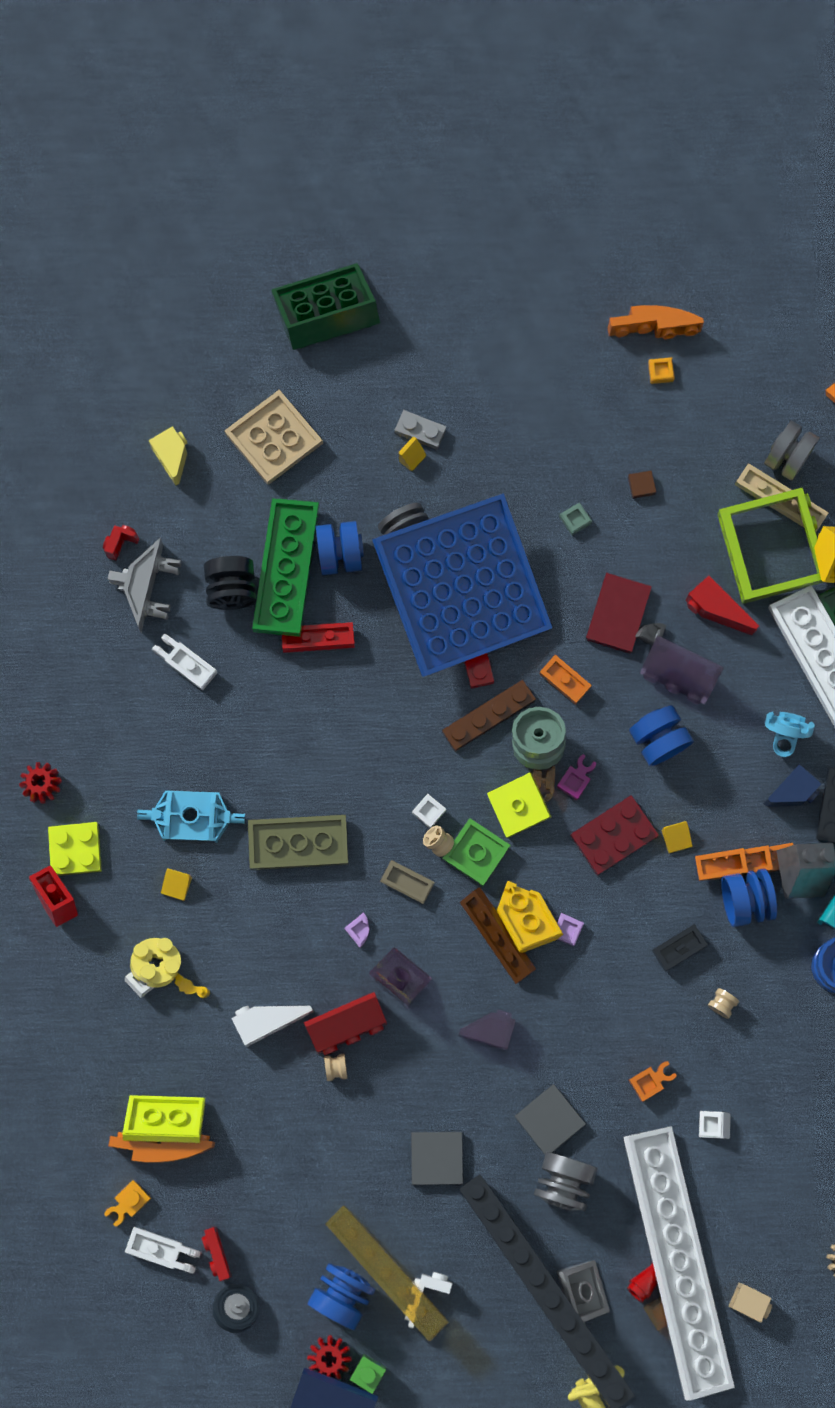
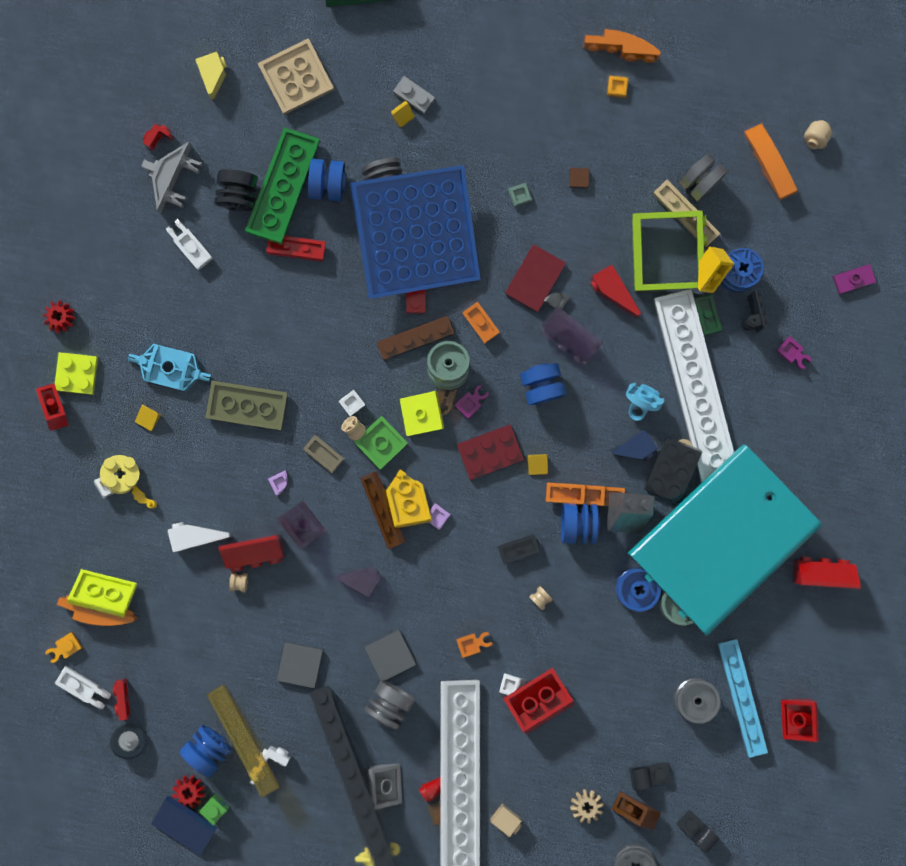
camera: 10 degrees right, 10 degrees up
(754, 1135) = (539, 701): none -> red slope

